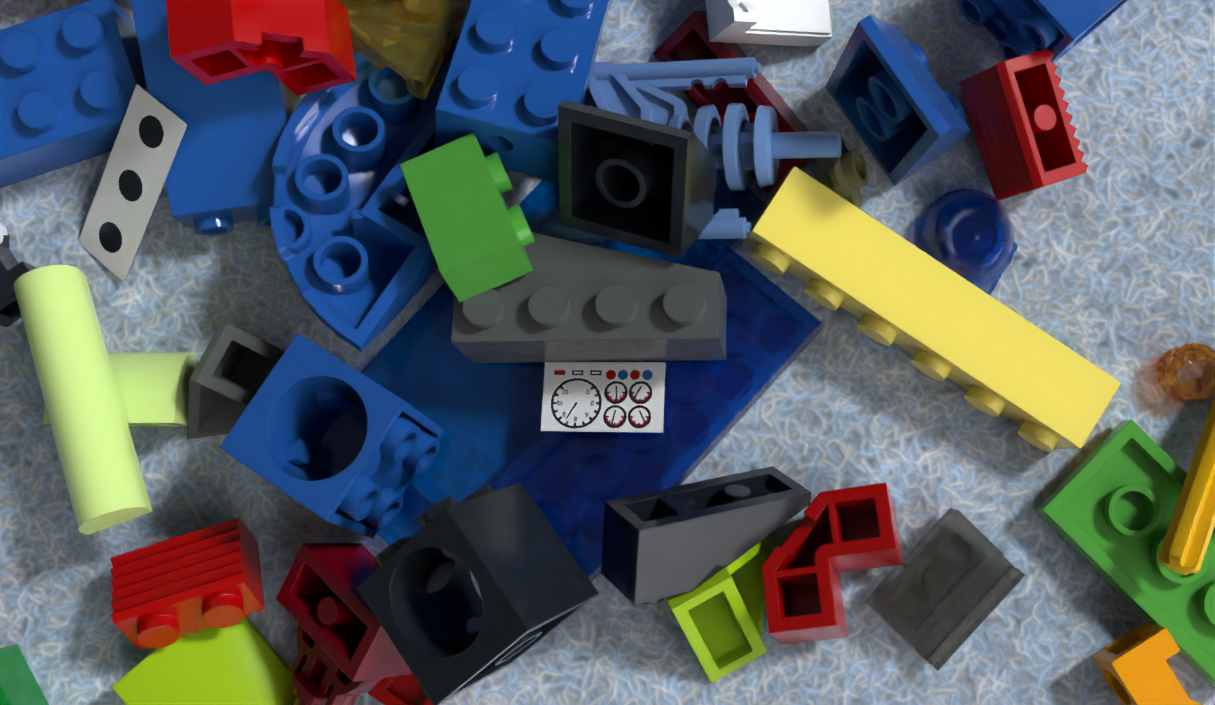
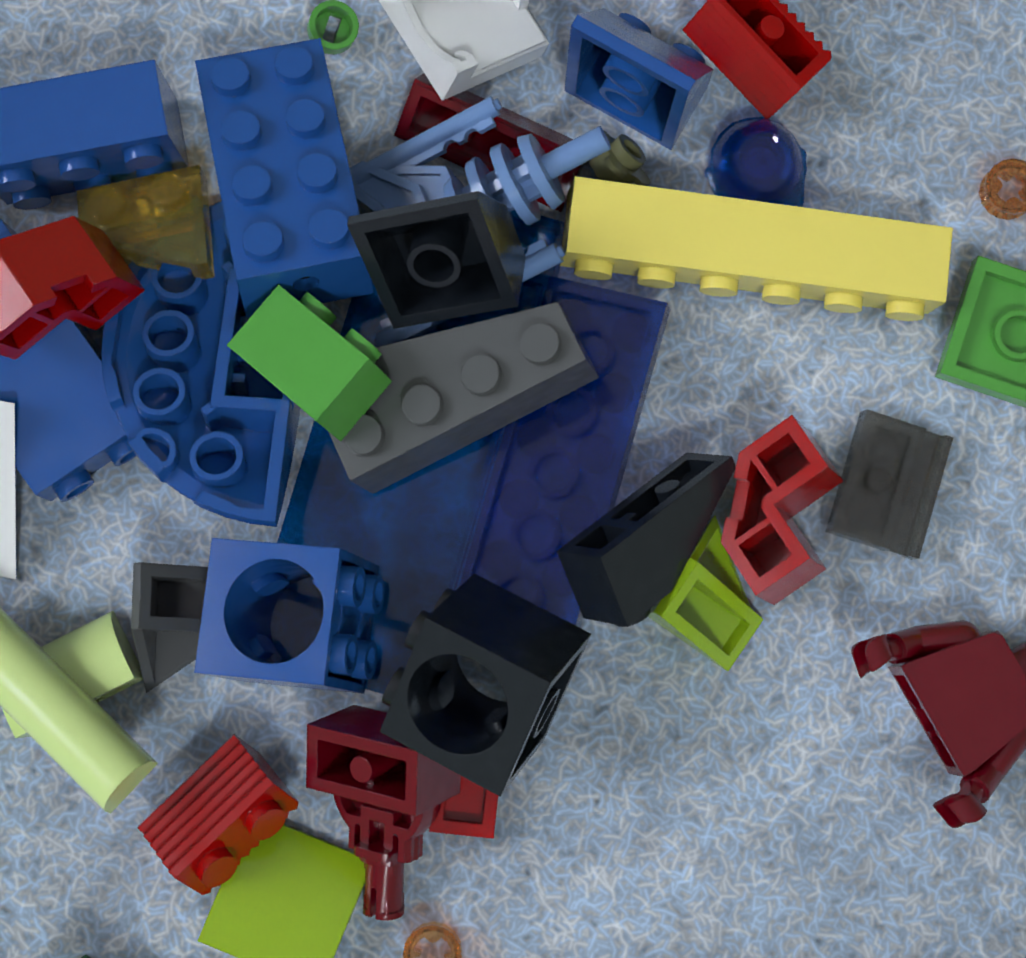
camera: 30 degrees left, 0 degrees up
(603, 397) = (507, 464): white sticker -> none

